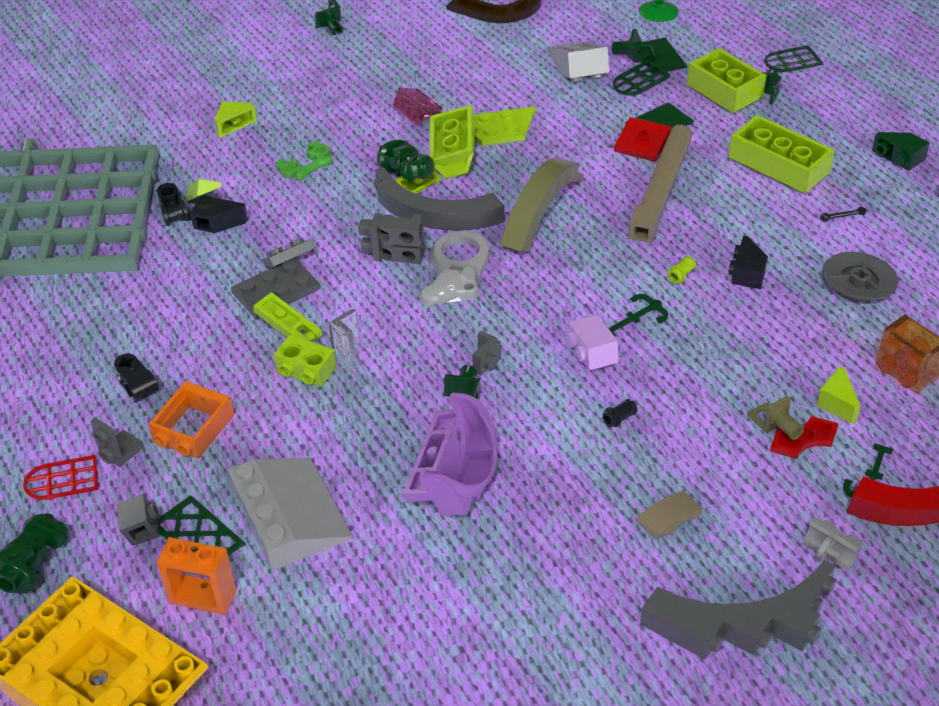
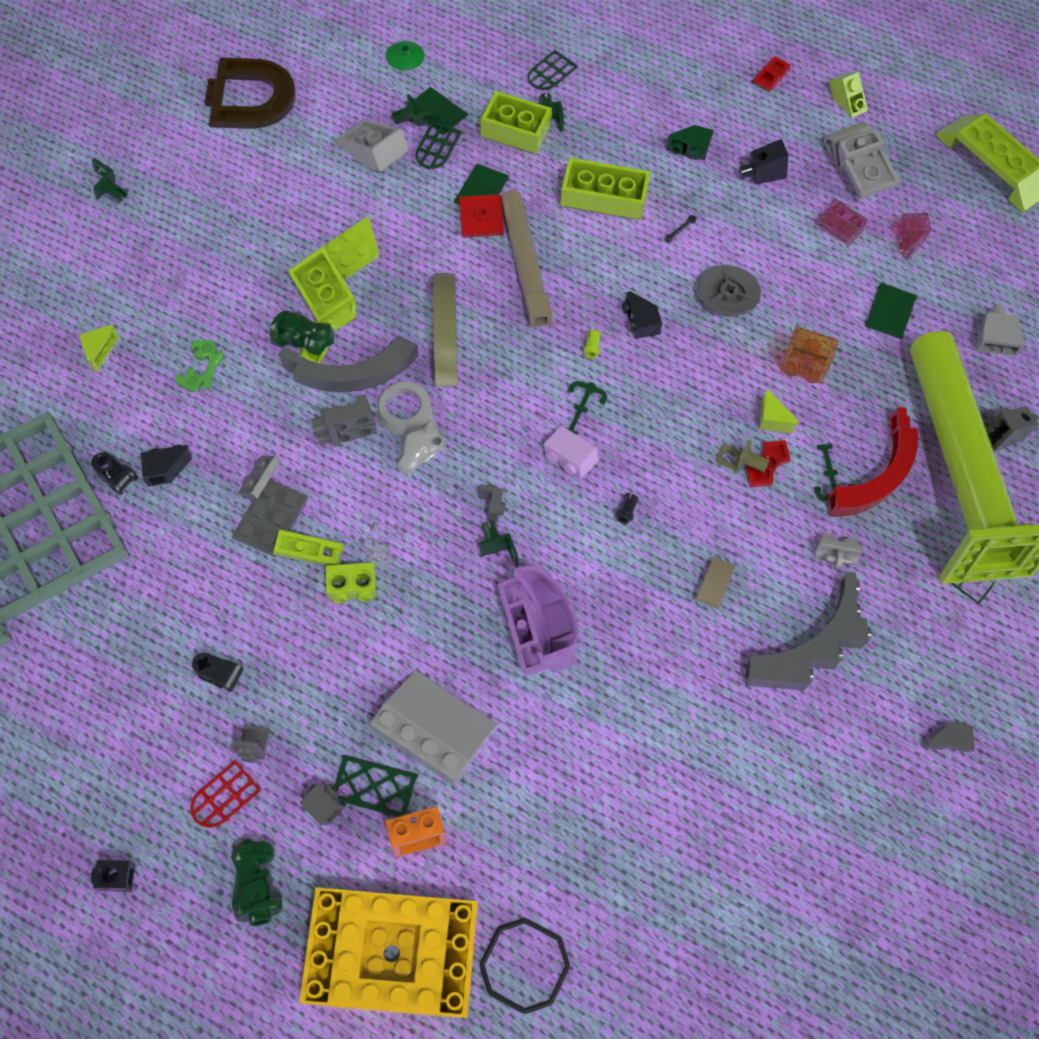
camera: 35 degrees left, 20 degrees up
(198, 398) = (294, 663): orange window -> none
(201, 187) = (132, 446): lime slope -> none
(415, 105) = (260, 259): clear pink bracket -> none

